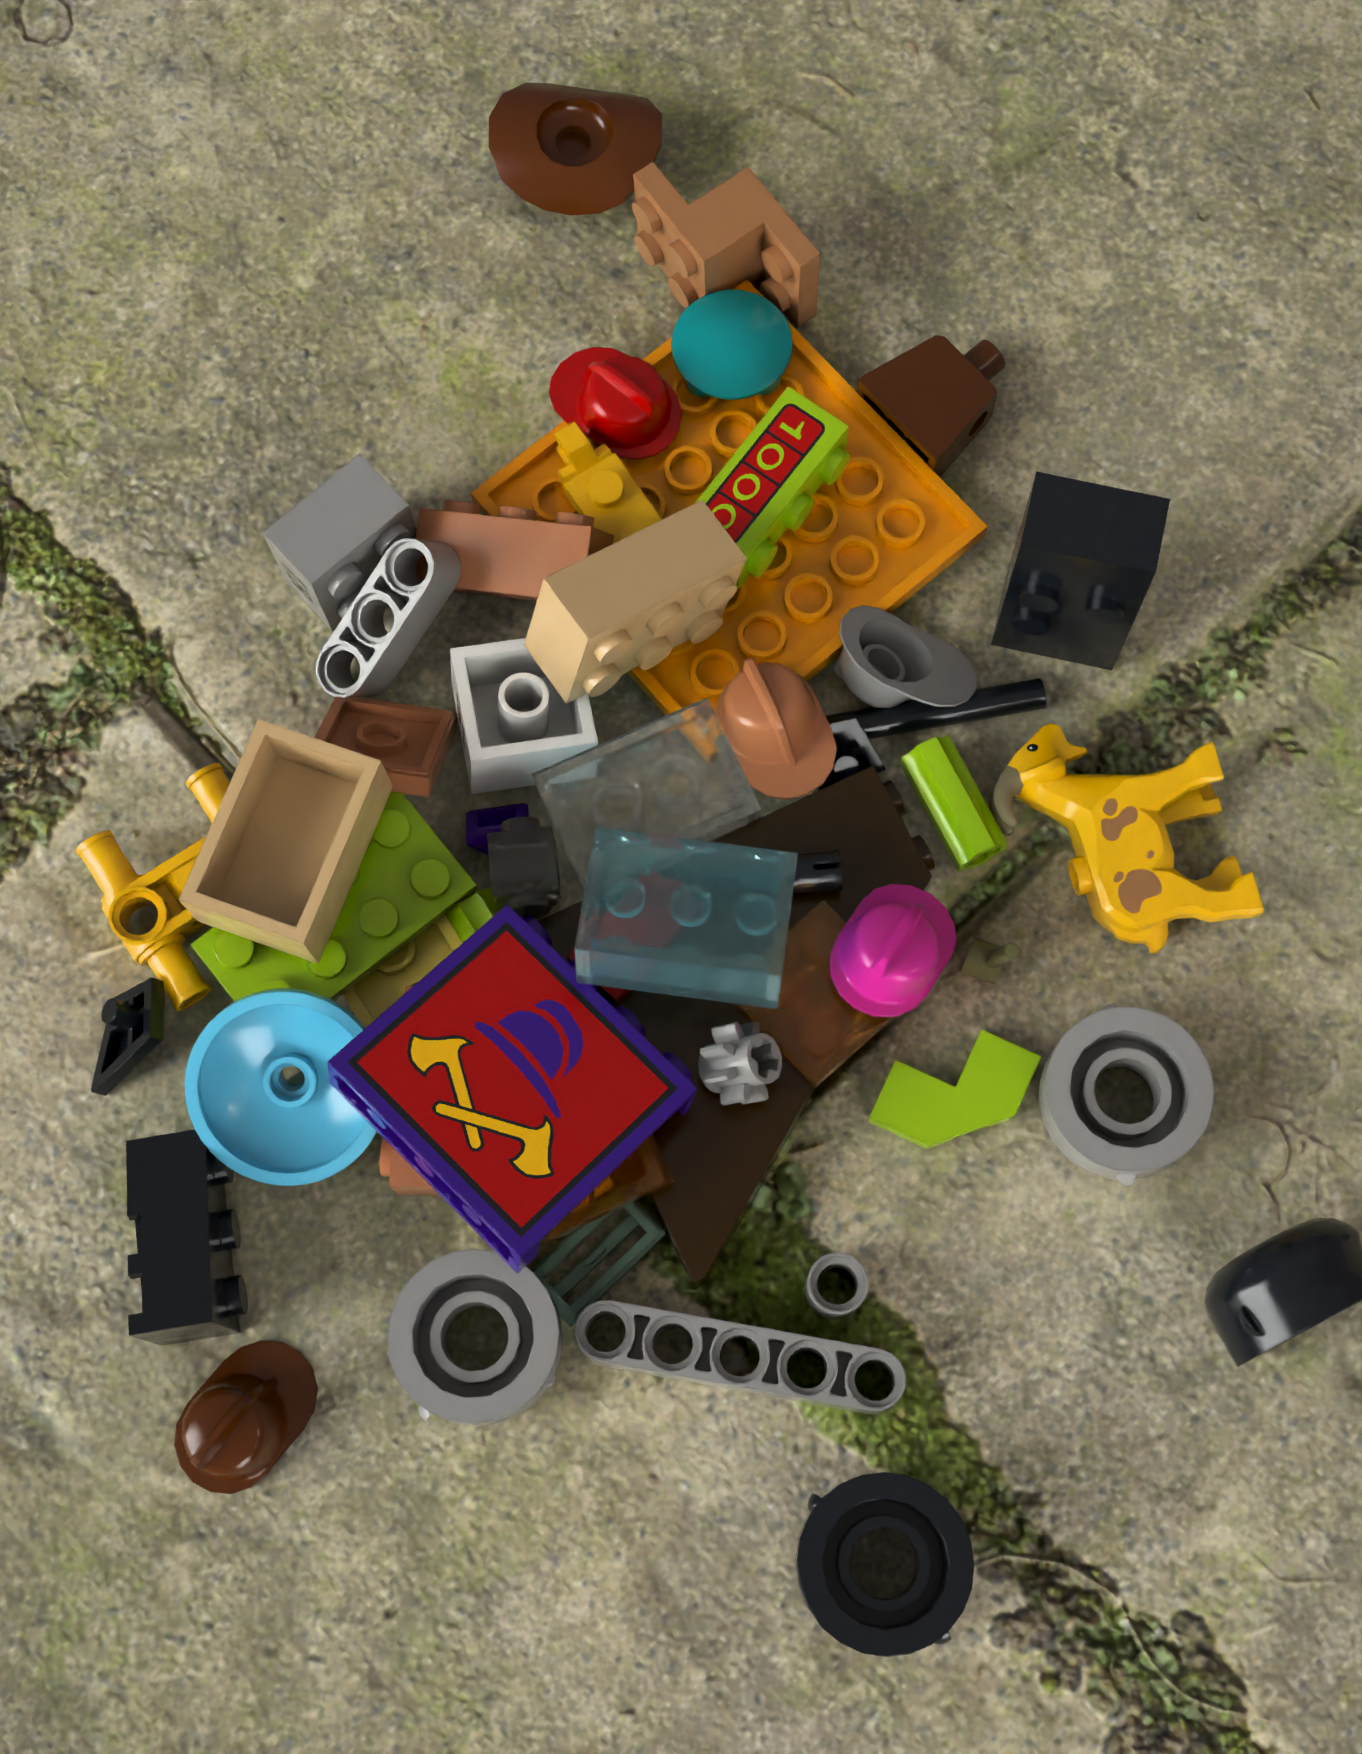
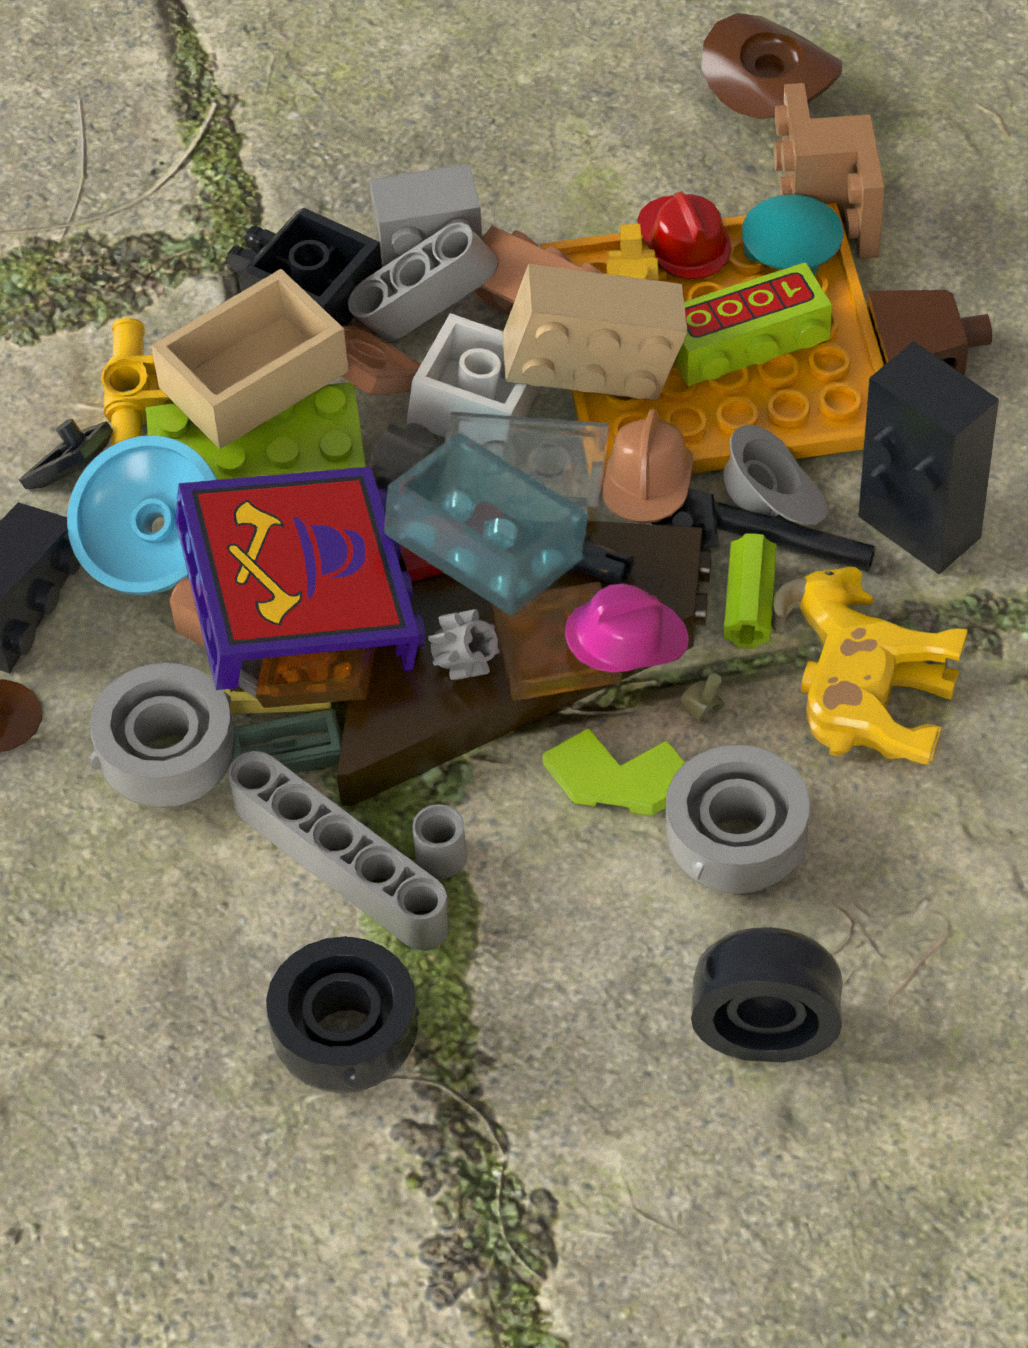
camera: 30 degrees right, 20 degrees down
(224, 645) = (315, 254): none -> black hinge

